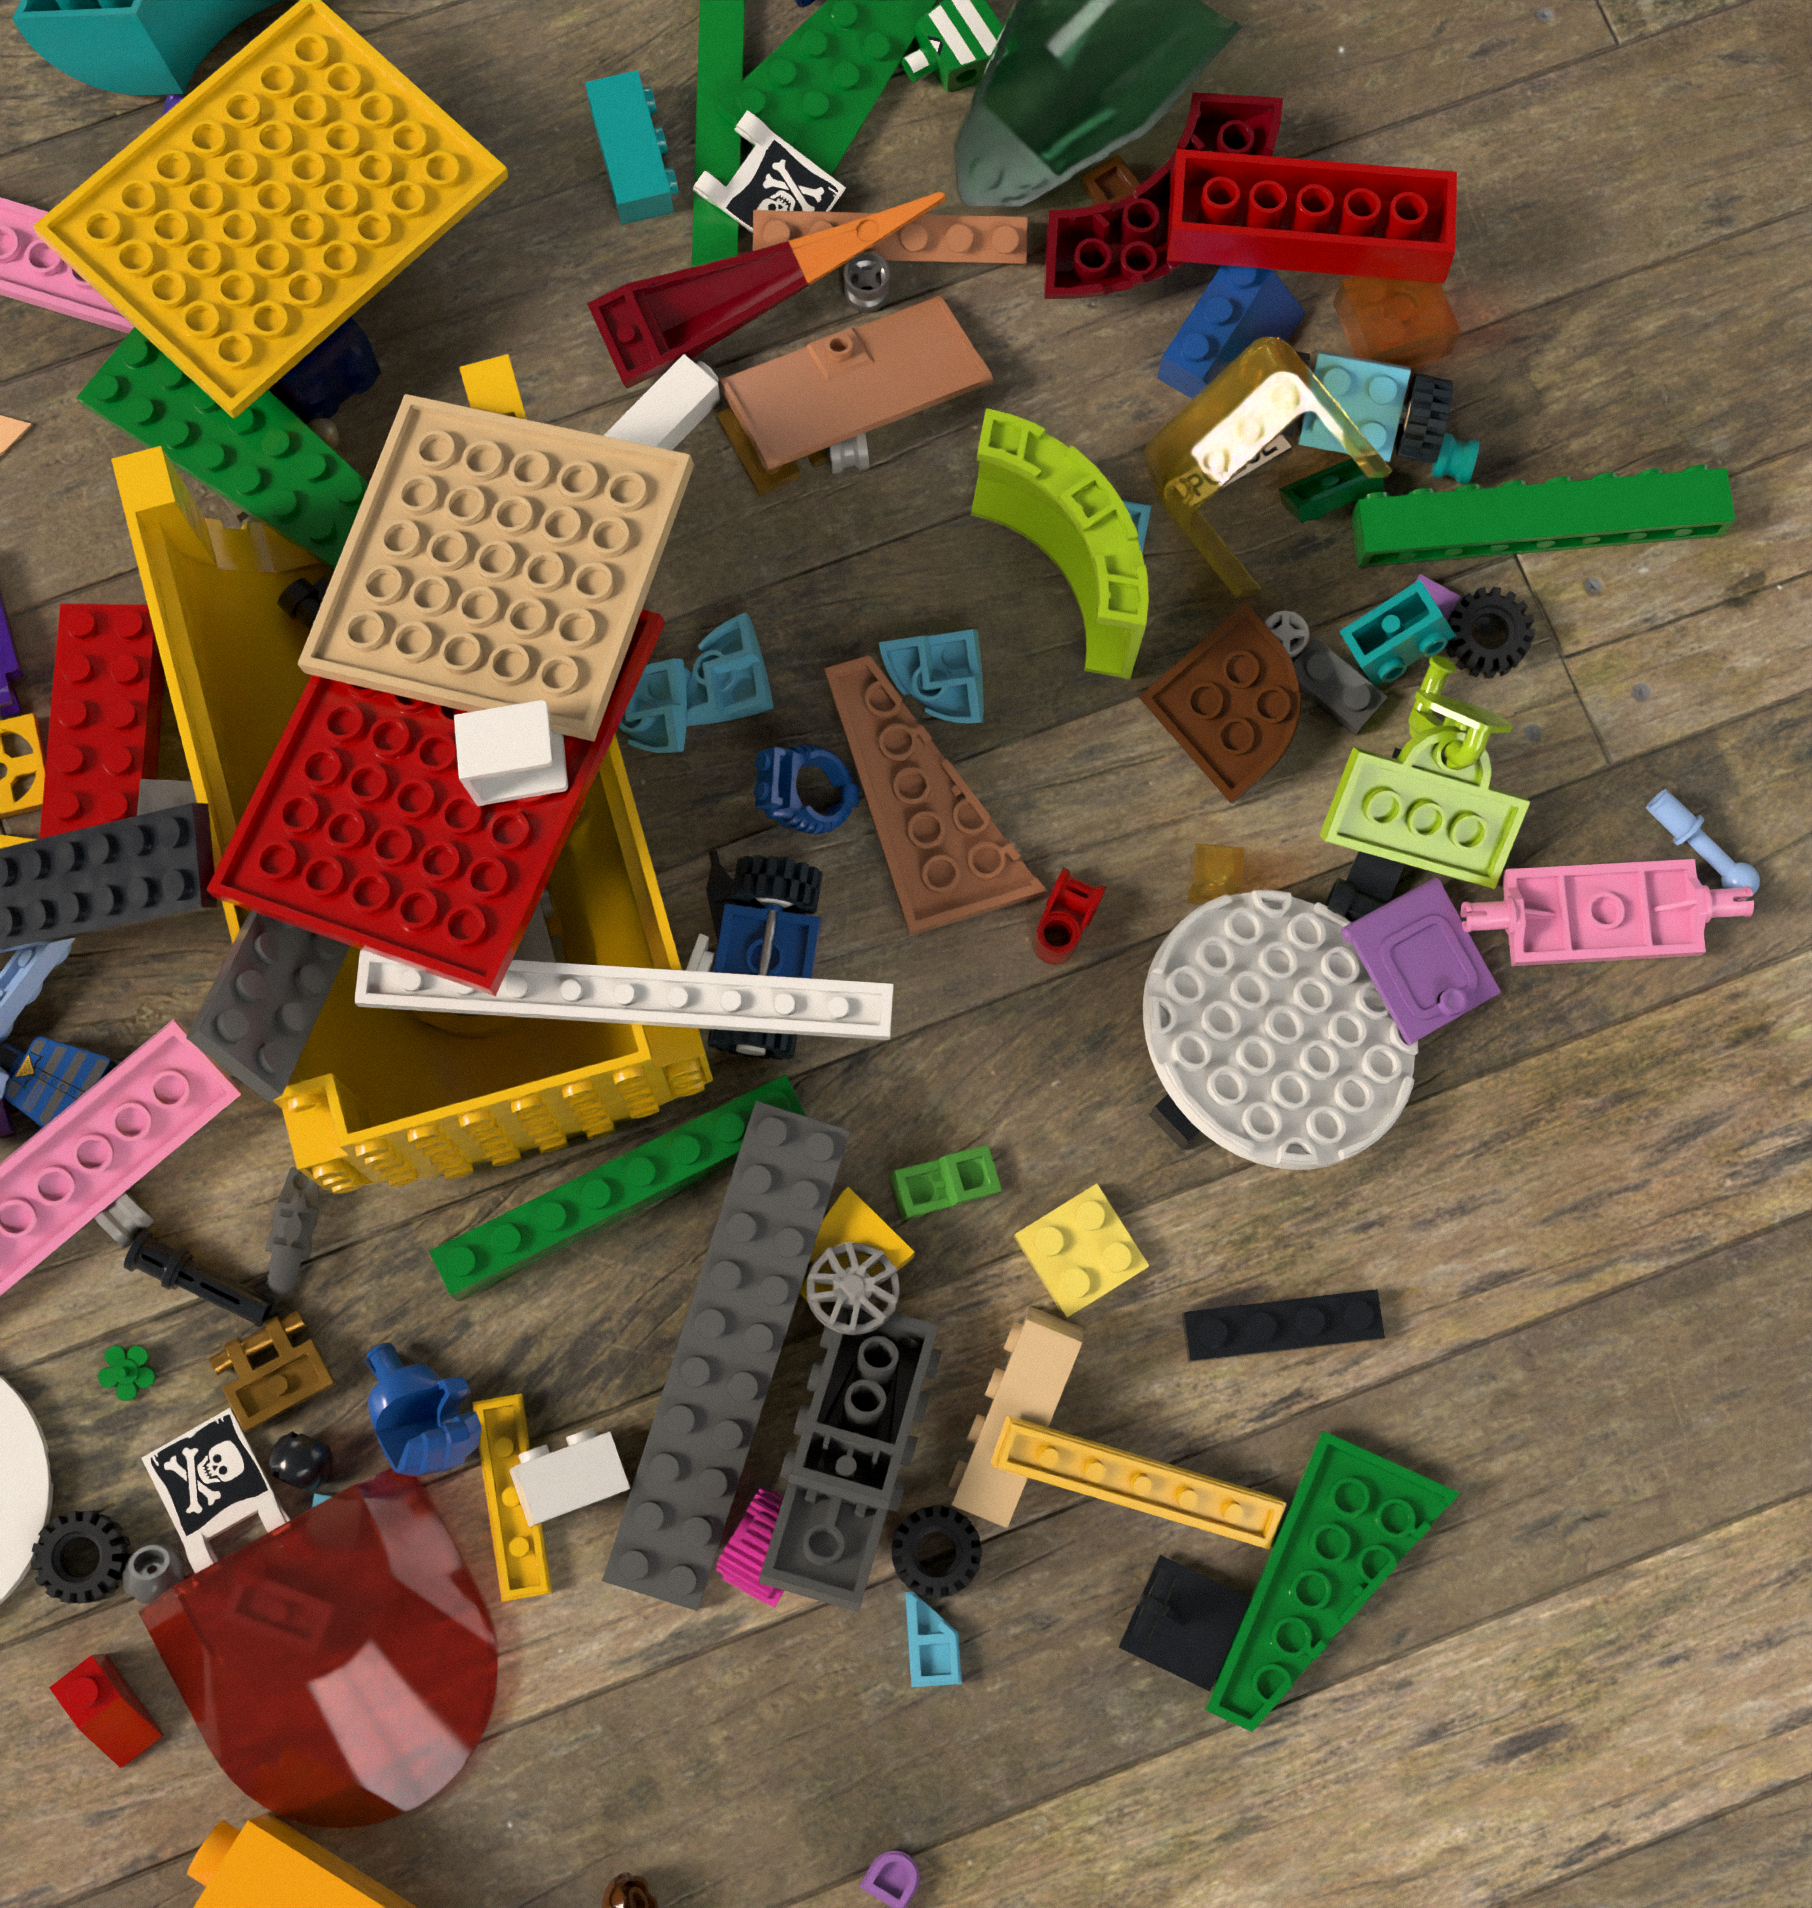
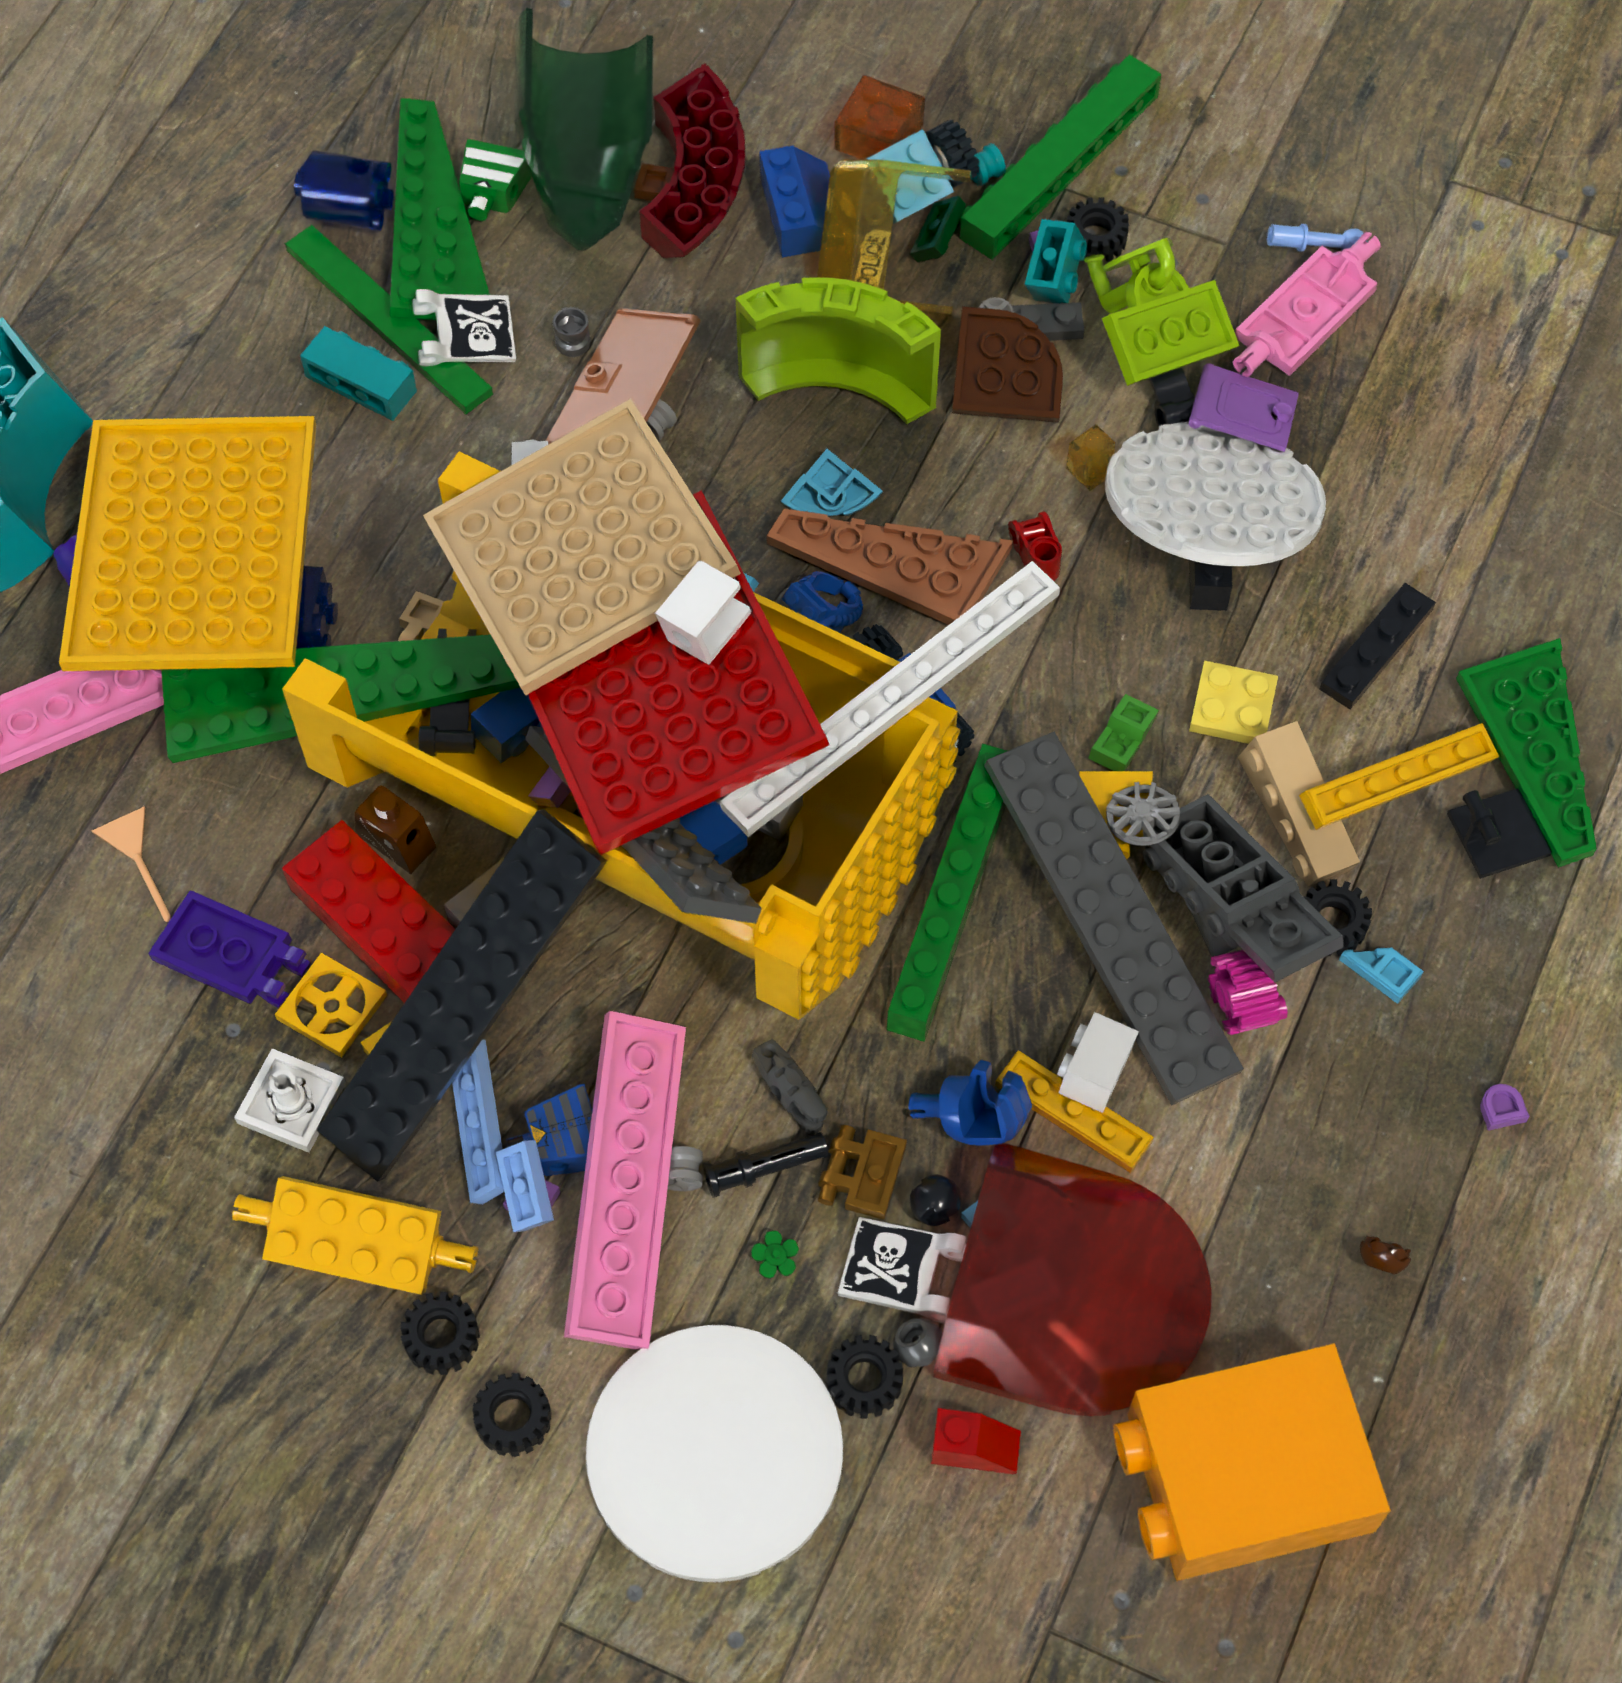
camera: 40 degrees left, 15 degrees down
(691, 309) = (498, 403): dark red plate -> none
(923, 240) = (572, 289): nougat plate -> none
(1312, 216) = (790, 95): red brick -> none

